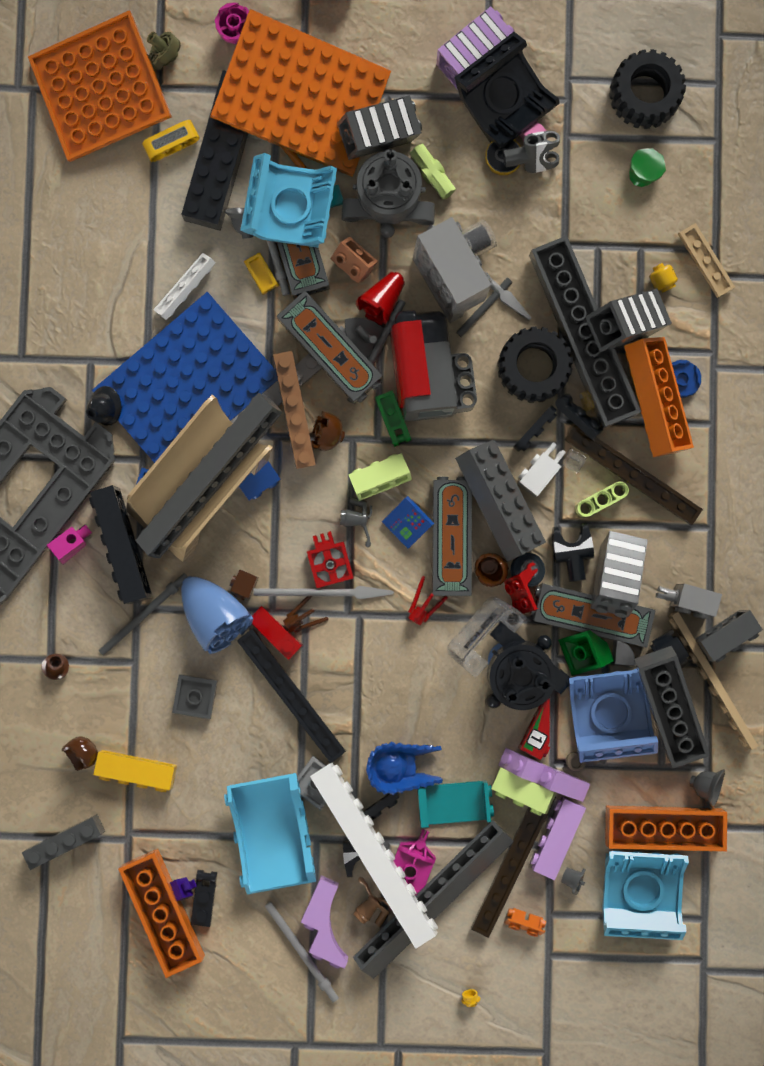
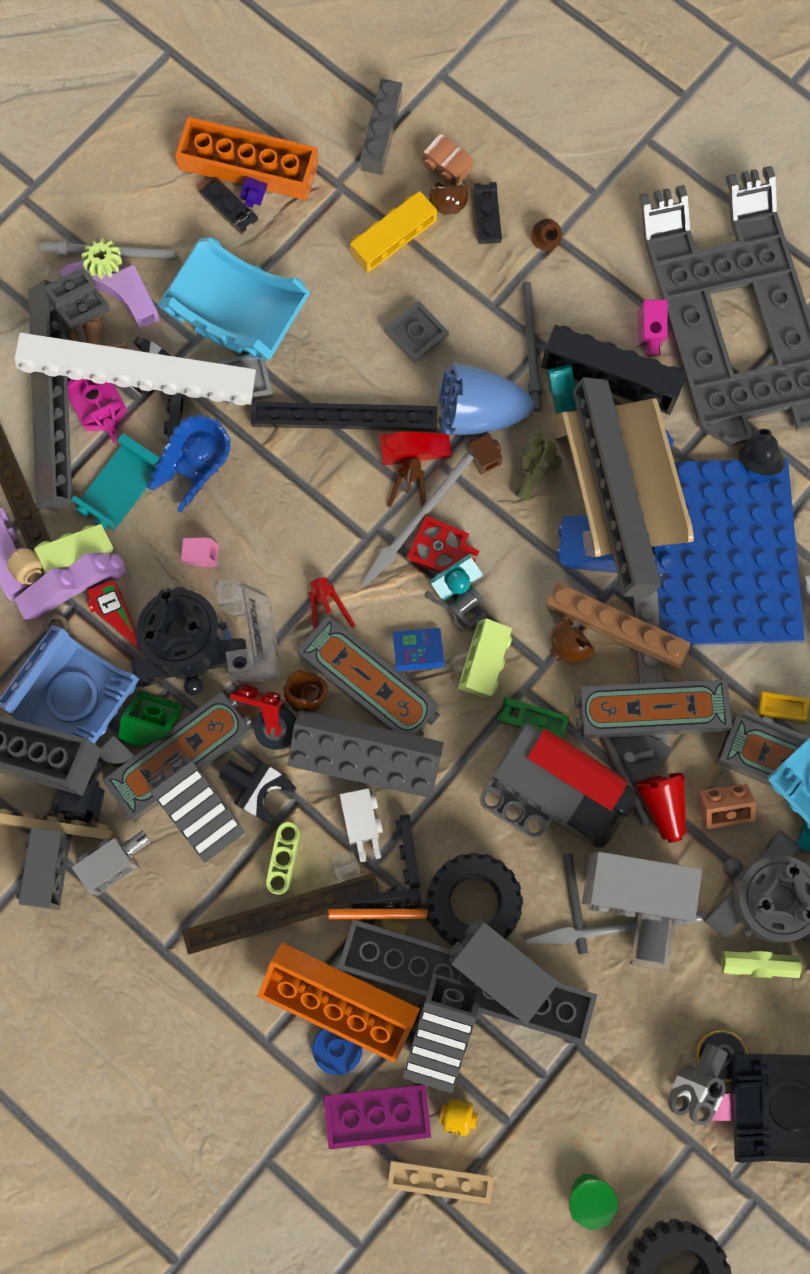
camera: 130 degrees right, 10 degrees down
(53, 776) = (447, 160): none -> nougat brick
(70, 719) = (487, 213): none -> black plate
(160, 568) = (561, 387): none -> teal tile
(224, 545) = (536, 463): none -> olive pin
(310, 939) = (98, 251): none -> yellowish green gear
(343, 534) = (456, 578): none -> teal tile
(356, 938) = (76, 298): none -> dark grey slope
(456, 712) = (200, 552): none -> bright pink brick
(560, 810) = (24, 566): none -> tan head
(568, 310) = (502, 971): none -> dark grey brick
(590, 415) = (377, 913): none -> orange bar
(701, 325) = (377, 1116): none -> magenta plate

